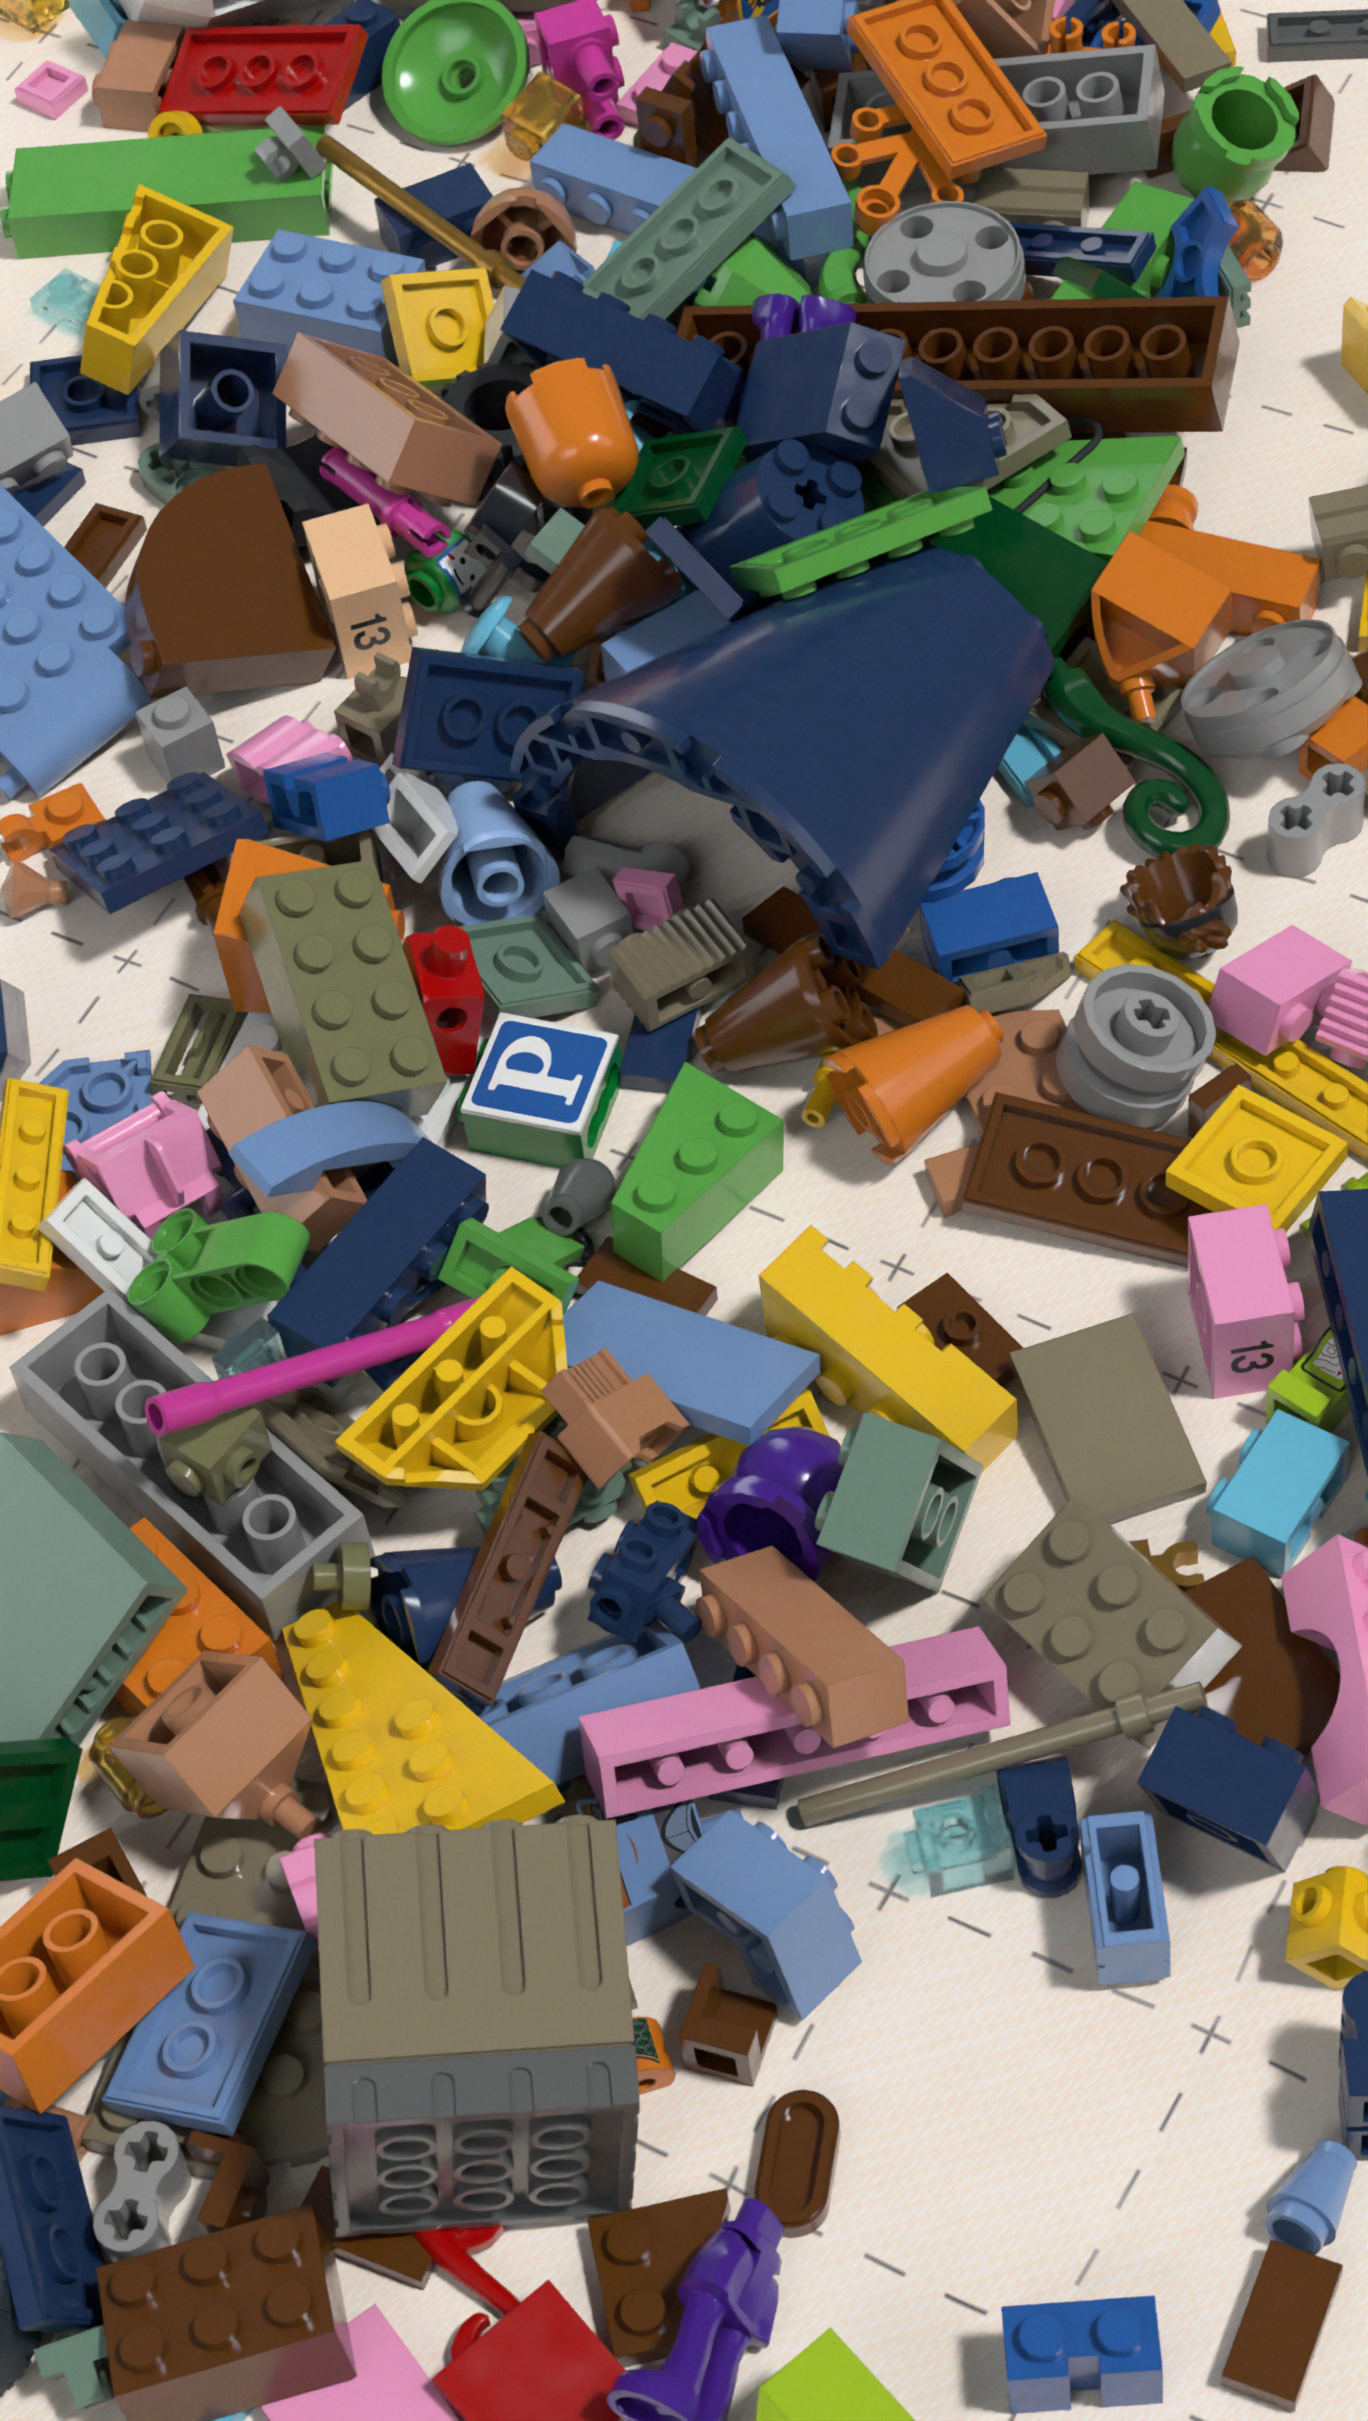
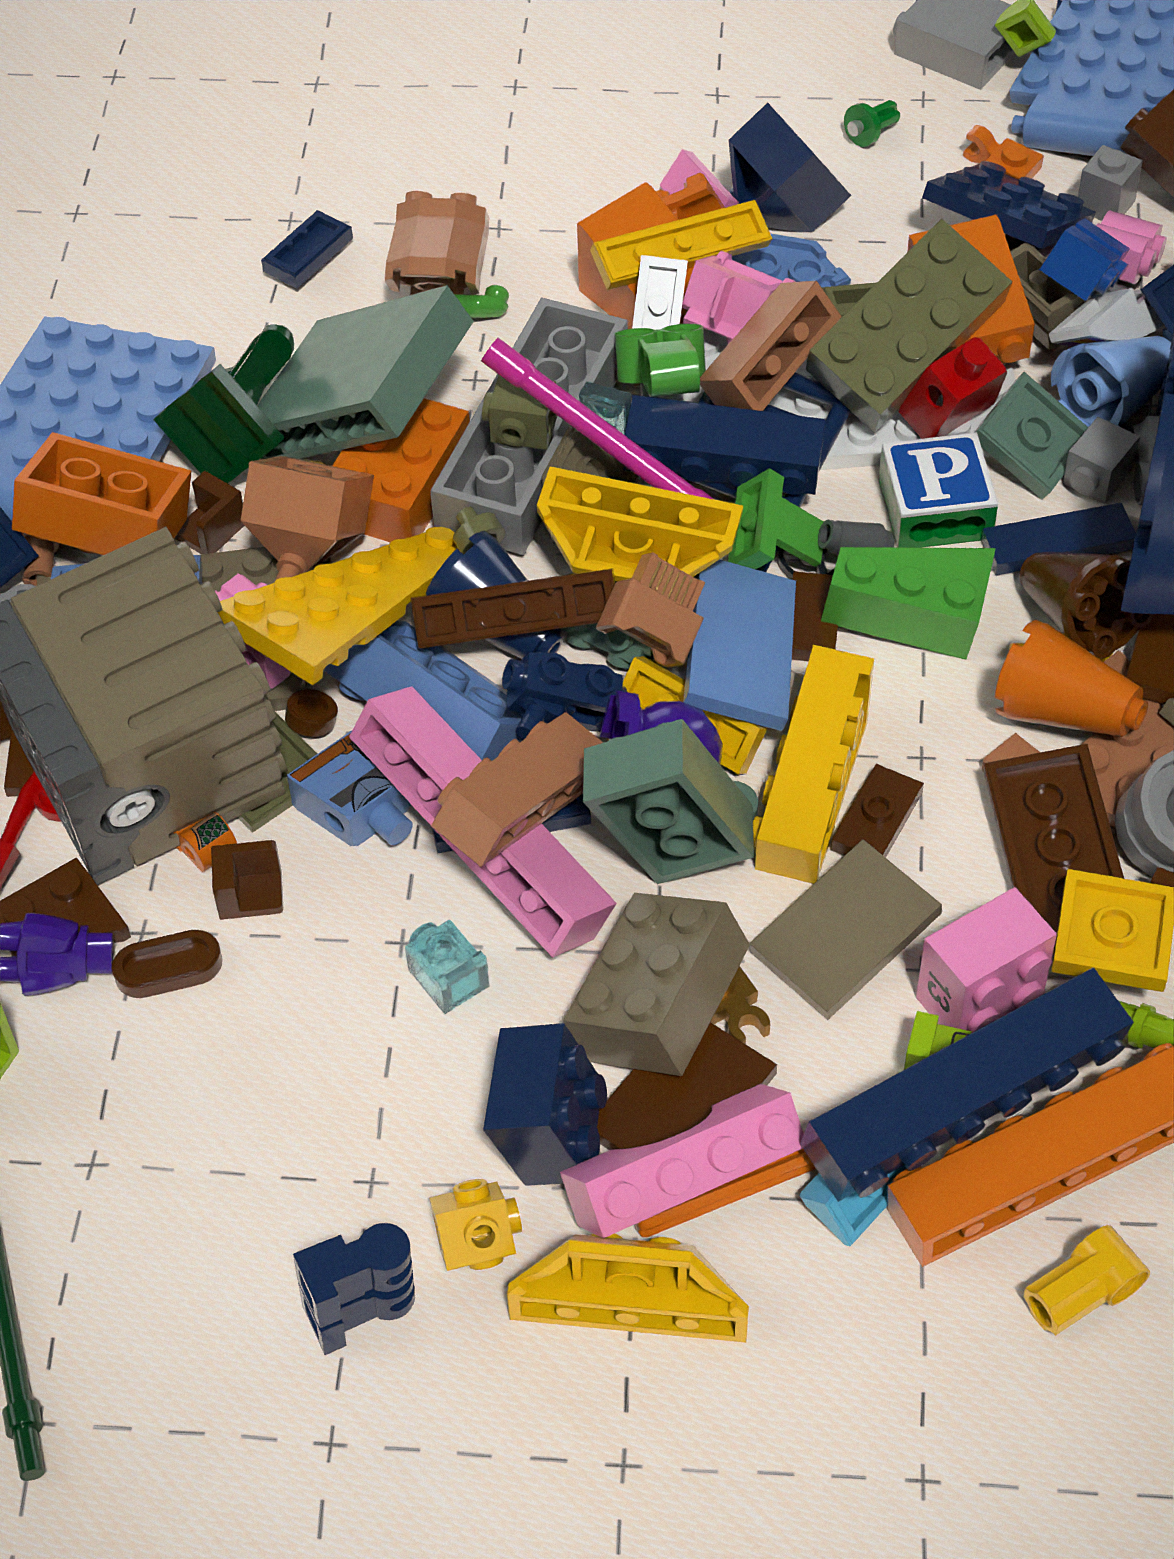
camera: 60 degrees right, 0 degrees up
(28, 890) = (936, 162): nougat rock -> none
(297, 1149) = (787, 368): medium blue slope -> none
(648, 896) = (1132, 480): bright pink tile -> none
(680, 964) = (1084, 515): dark tan brick -> none
(772, 1908) = (320, 860): medium blue brick -> none
(1042, 1824) = (485, 1003): dark blue piece -> none
(1081, 2348) = (71, 1178): blue brick -> none
(1125, 1898) = (433, 1074): medium blue brick -> none
(1131, 1715) = (561, 1007): dark tan bar -> none
(1278, 1492) = (836, 1055): medium azure brick -> none
(1282, 2325) = (149, 1304): reddish brown tile -> none
(1312, 2199) = (252, 1287): medium blue cone -> none

